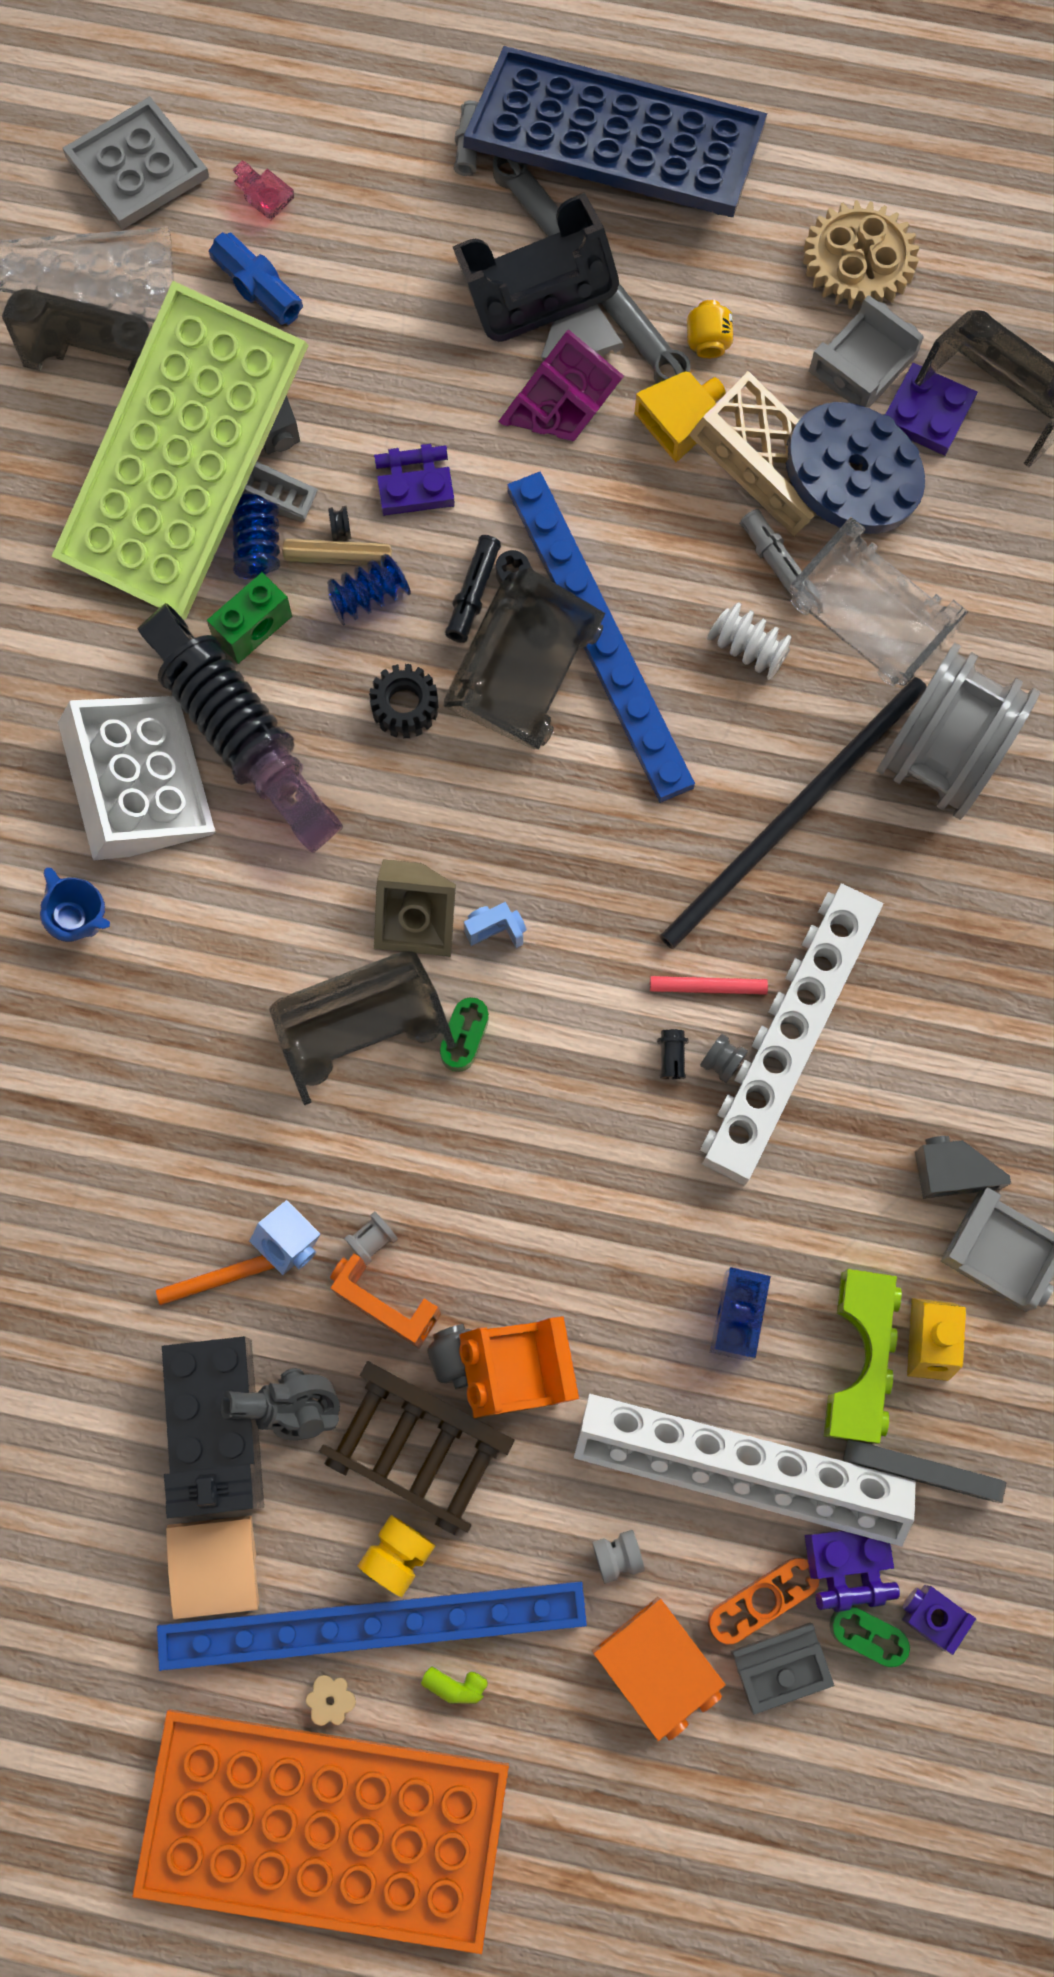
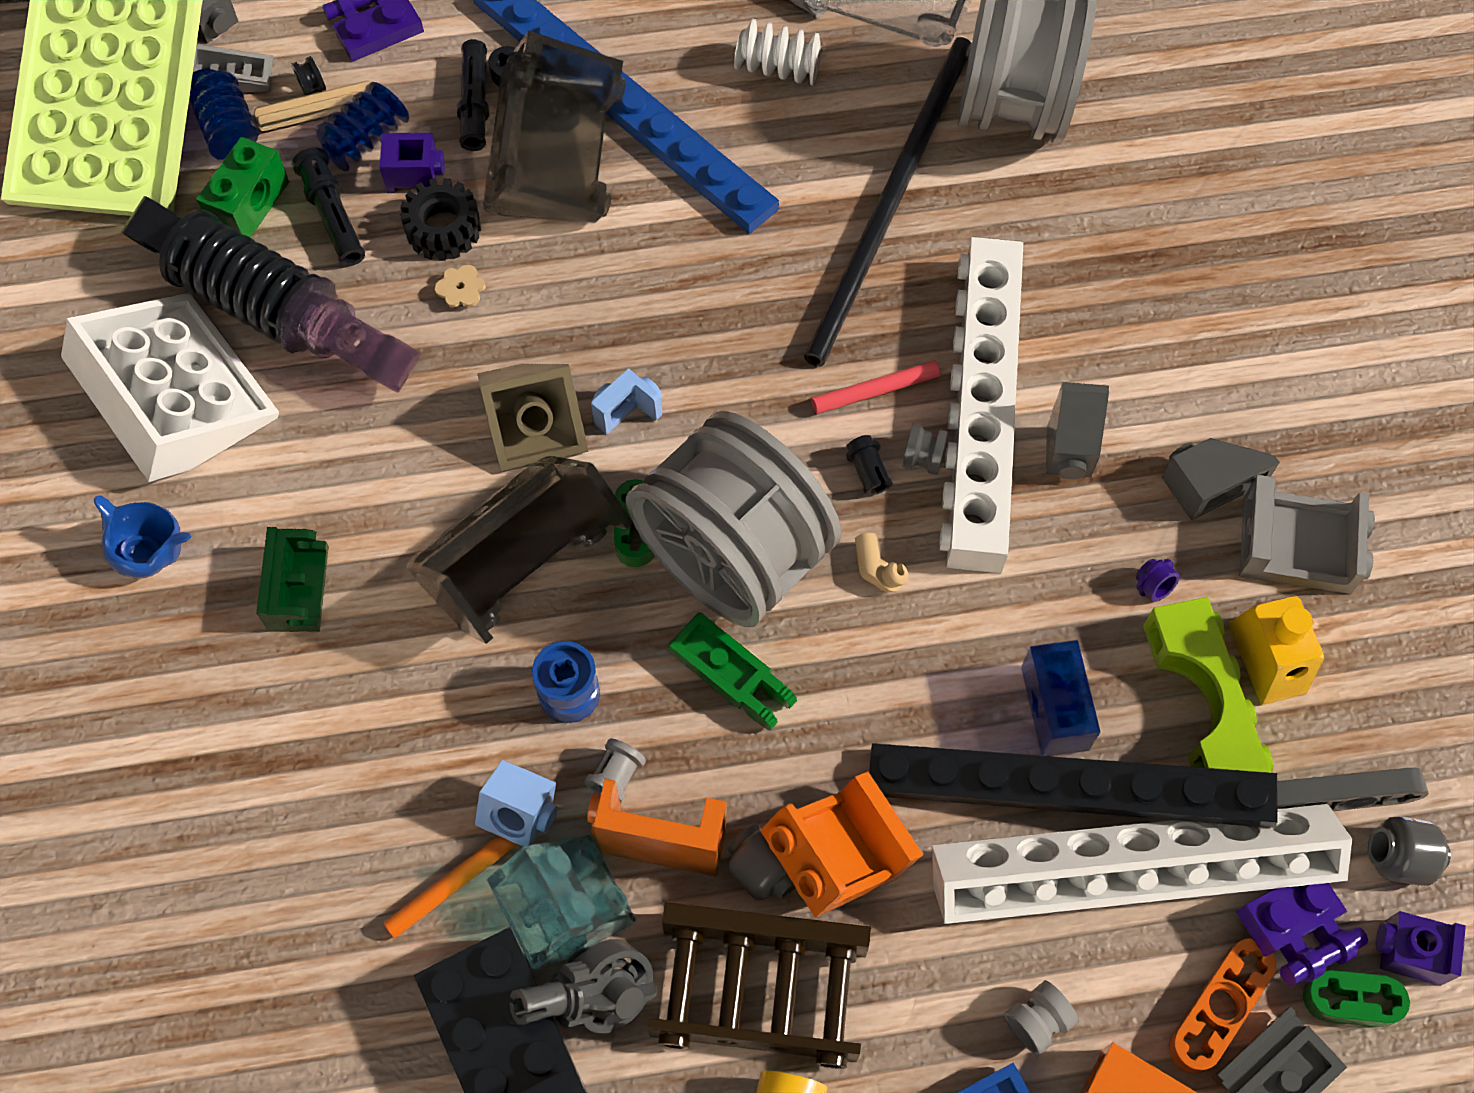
camera: 20 degrees left, 10 degrees down
(178, 986) = (292, 580): none -> dark green hinge
(292, 1325) = (560, 899): none -> clear light blue slope
(318, 639) = (324, 192): none -> black pin
(358, 1153) = (566, 681): none -> blue wheel
(395, 627) = (409, 160): none -> dark purple brick
(406, 761) = (460, 286): none -> tan plant
(490, 1186) = (729, 668): none -> green hinge
(535, 1074) = (734, 517): none -> light grey wheel
(641, 1145) = (883, 575): none -> tan arm
(721, 1388) = (1076, 785): none -> black plate
(853, 1093) = (1076, 430): none -> dark grey slope
(867, 1241) = (1157, 579): none -> dark purple plate
(965, 1541) = (1409, 851): none -> dark grey head

